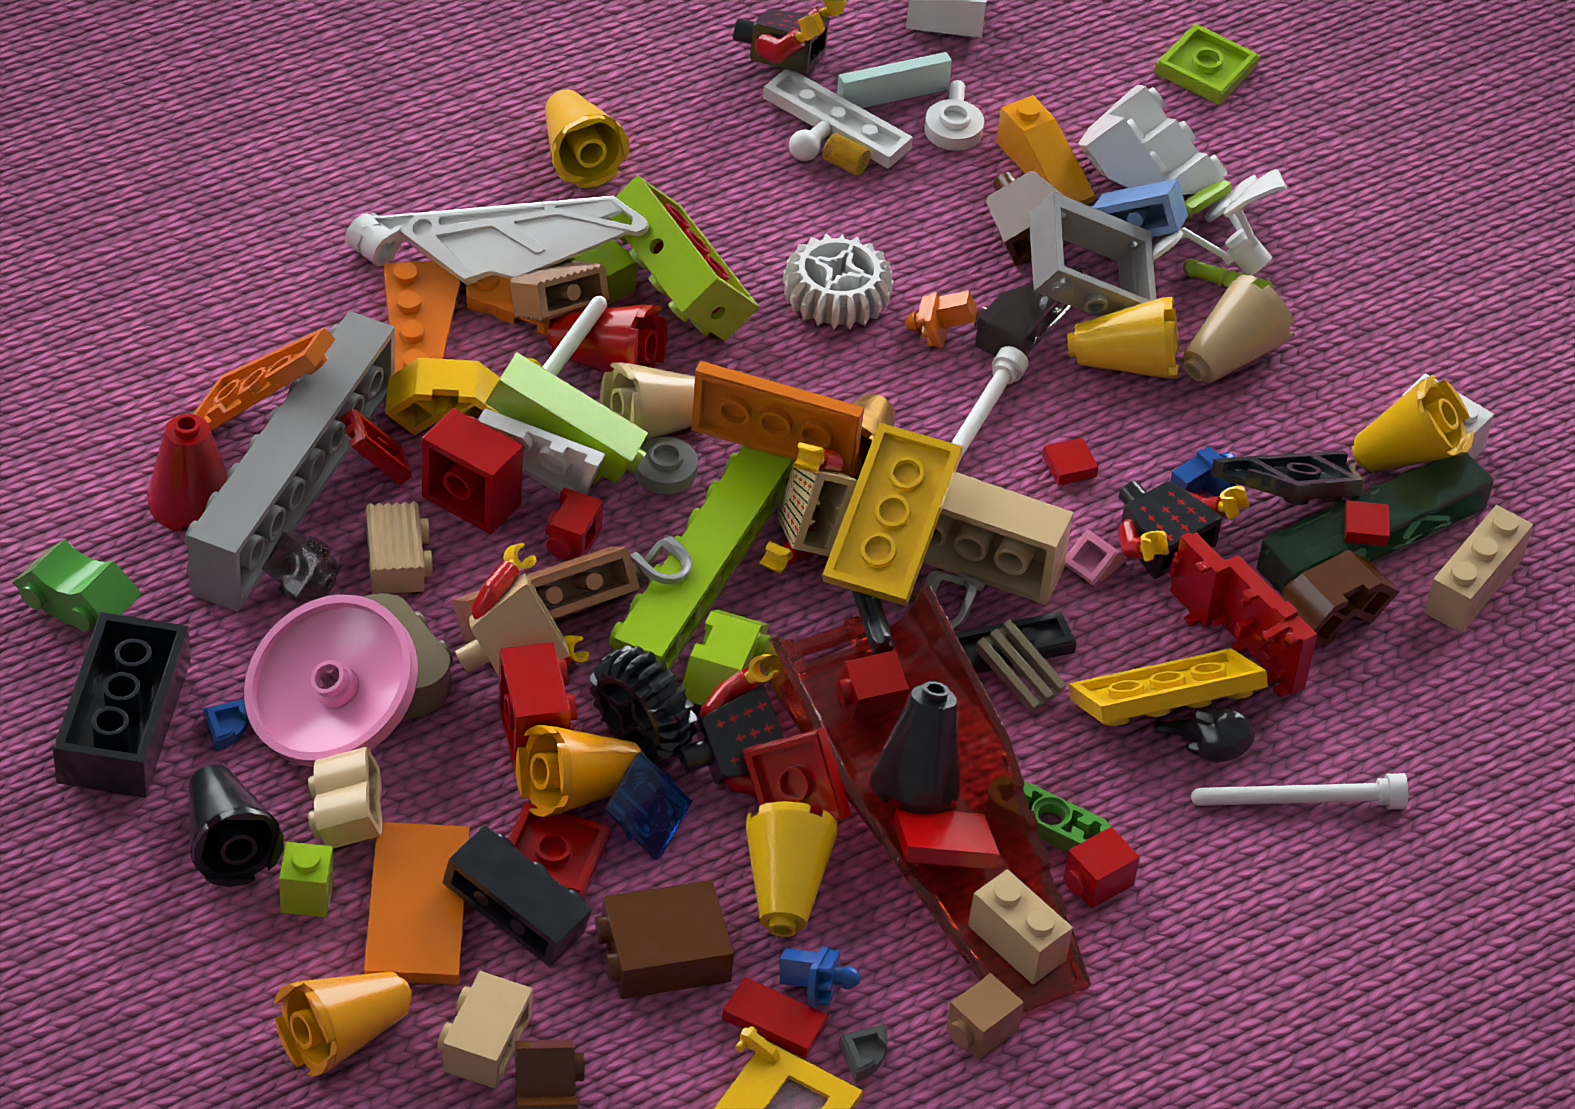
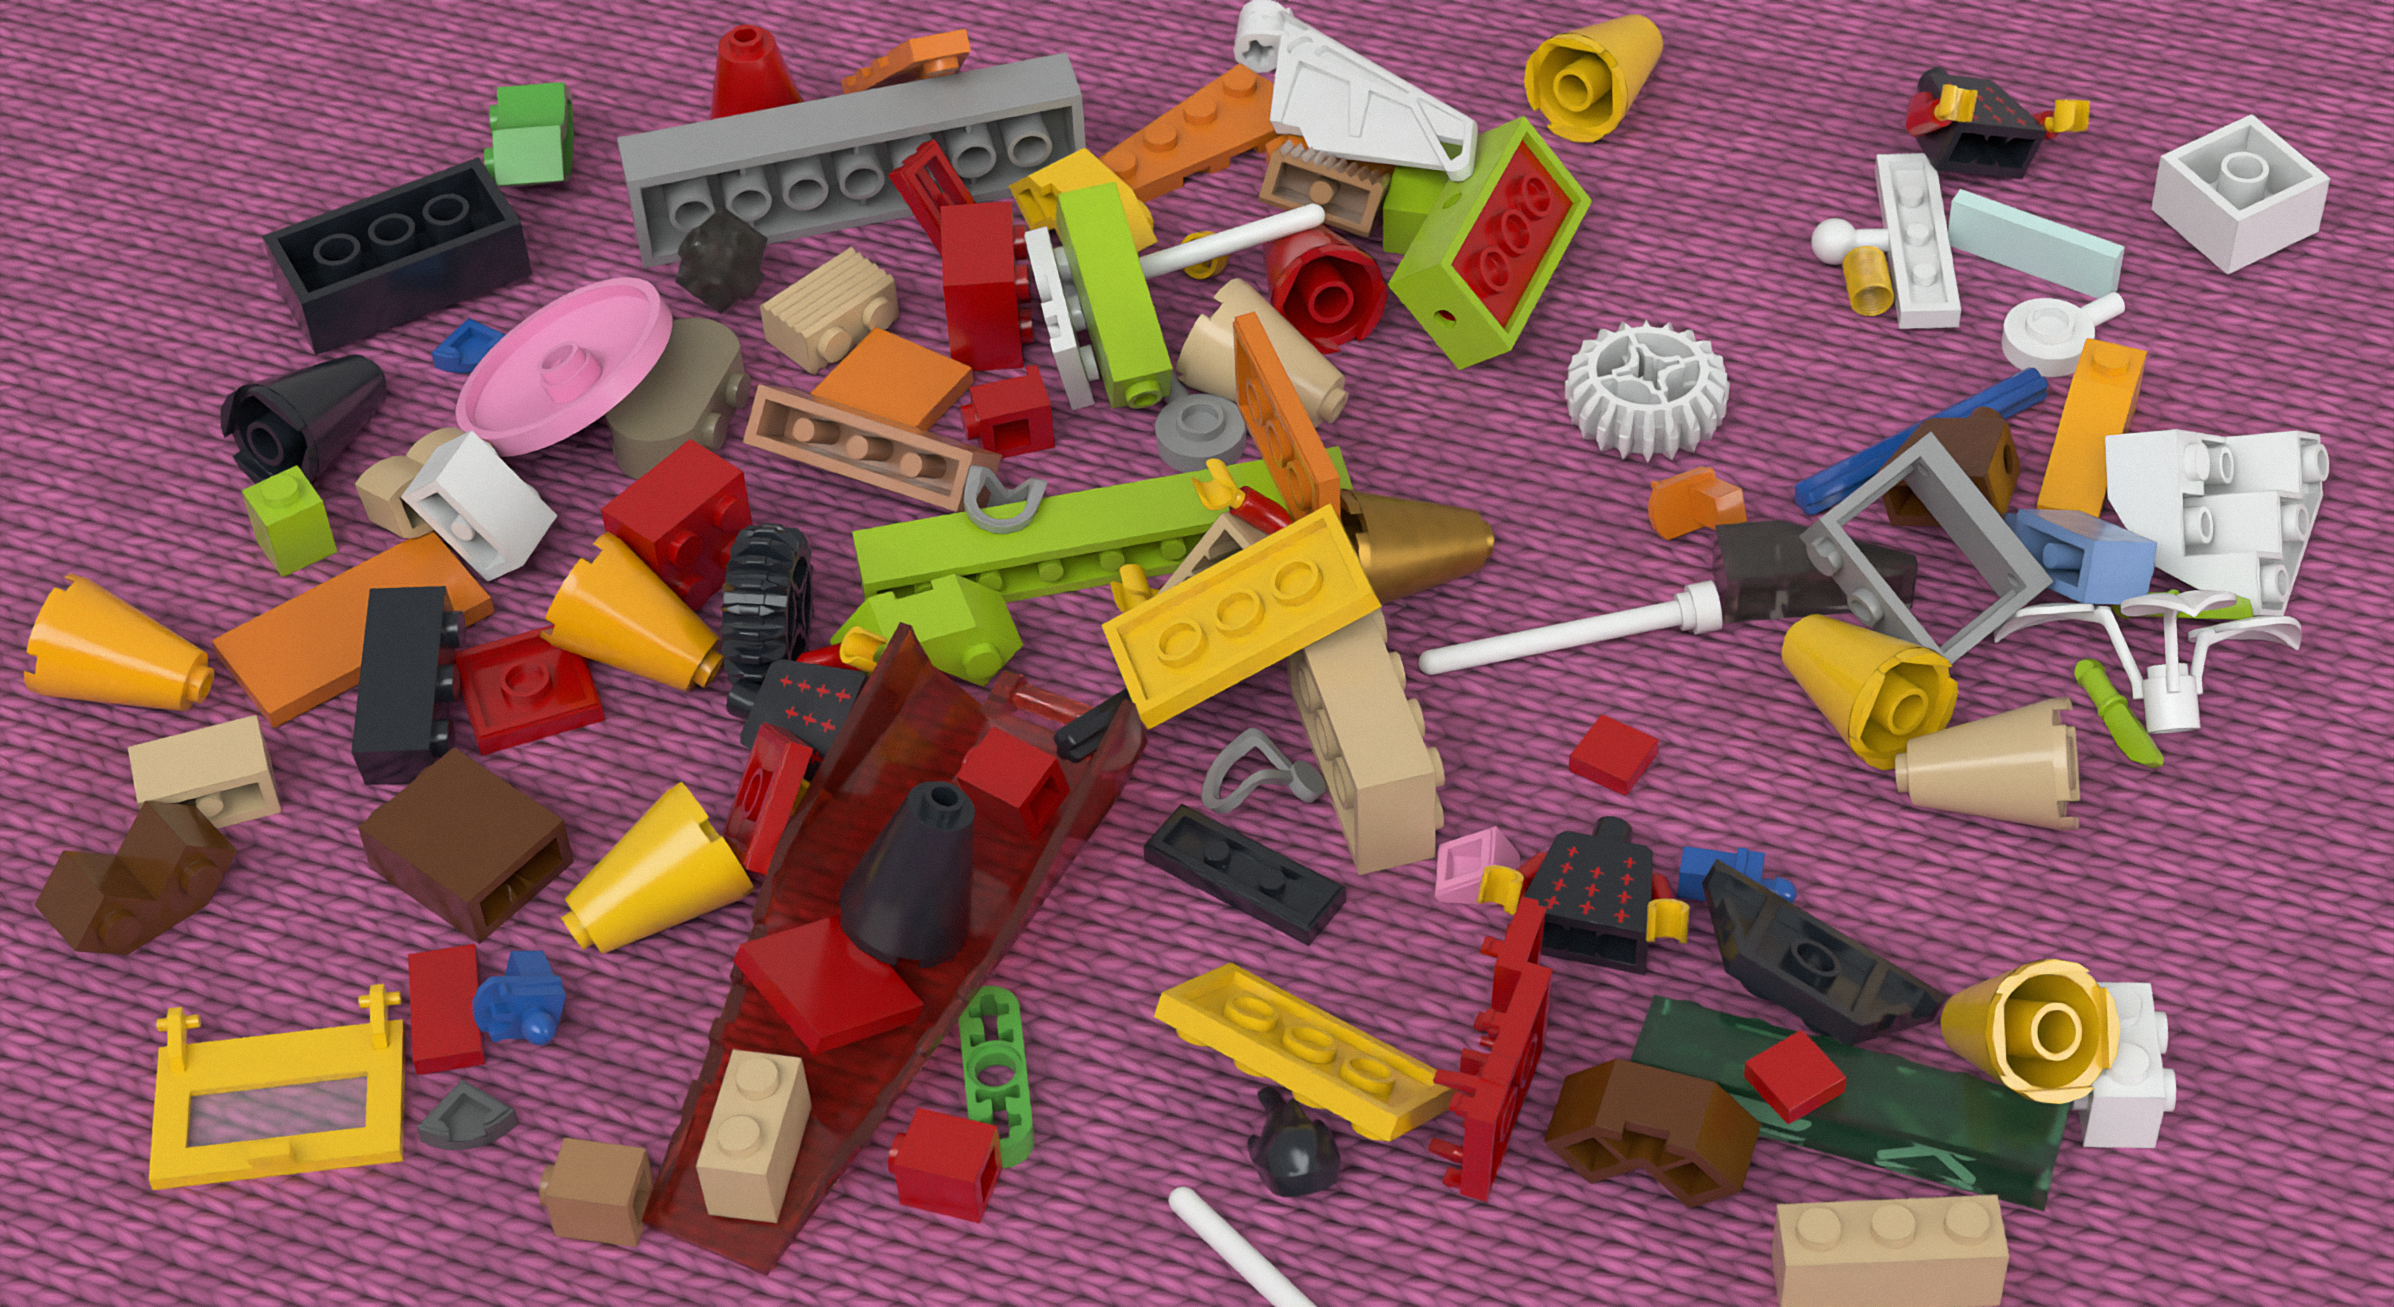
camera: 60 degrees right, 0 degrees up
(413, 780) = (479, 506): none -> white brick
(472, 555) = (897, 380): none -> orange tile
(512, 615) = (770, 435): tan torso -> none
(648, 805) = (647, 712): clear blue piece -> none
(977, 216) = (1849, 474): none -> blue axle
(1011, 633) = (1211, 850): dark tan tile -> none

